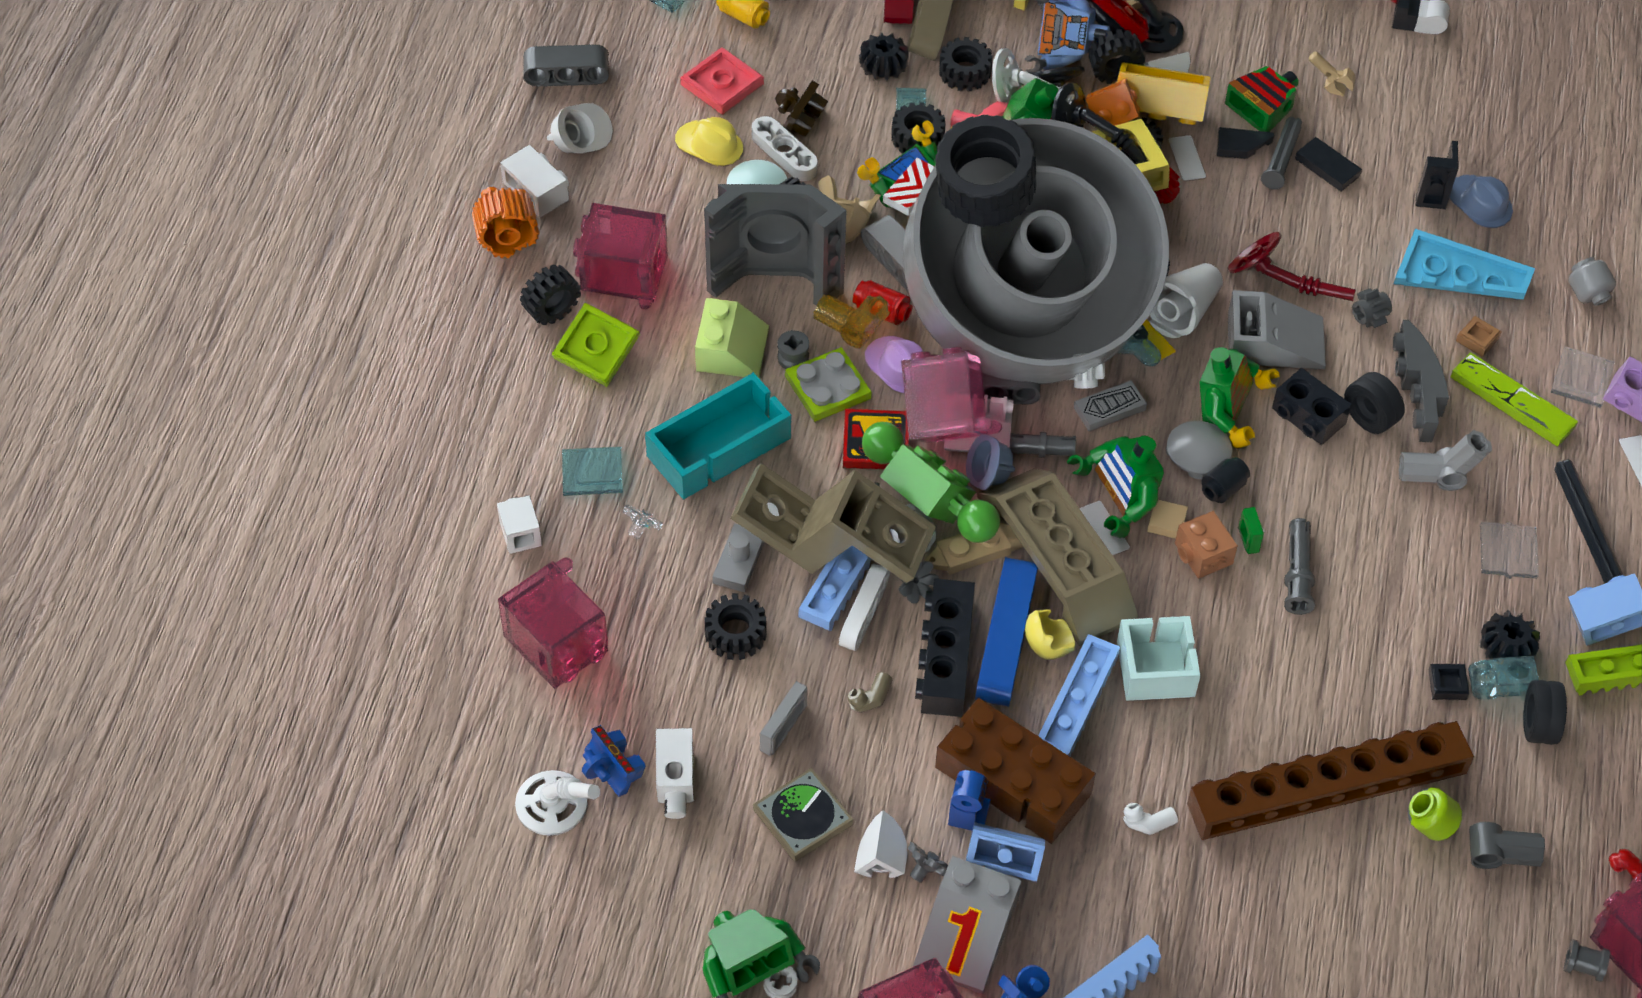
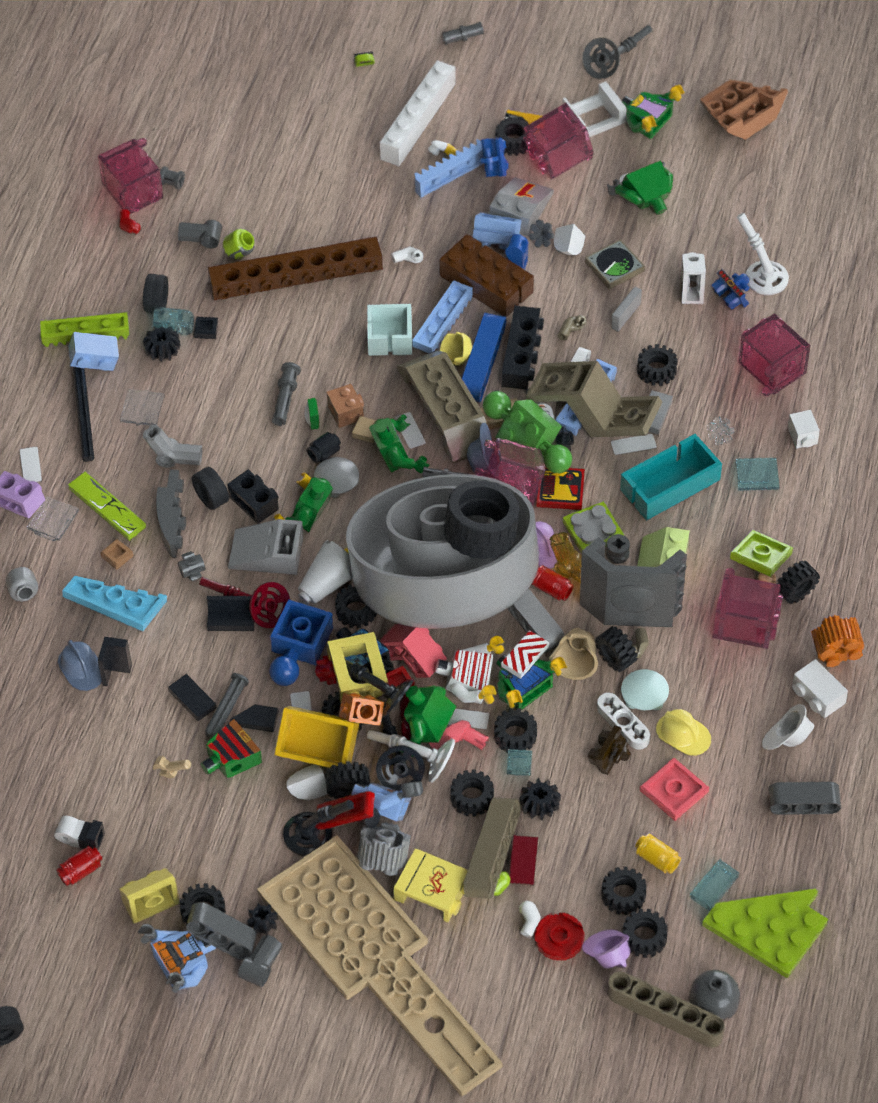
camera: 175 degrees left, 0 degrees up
(1208, 213) = (298, 636): none -> blue brick
(1306, 256) = (229, 613): none -> black panel

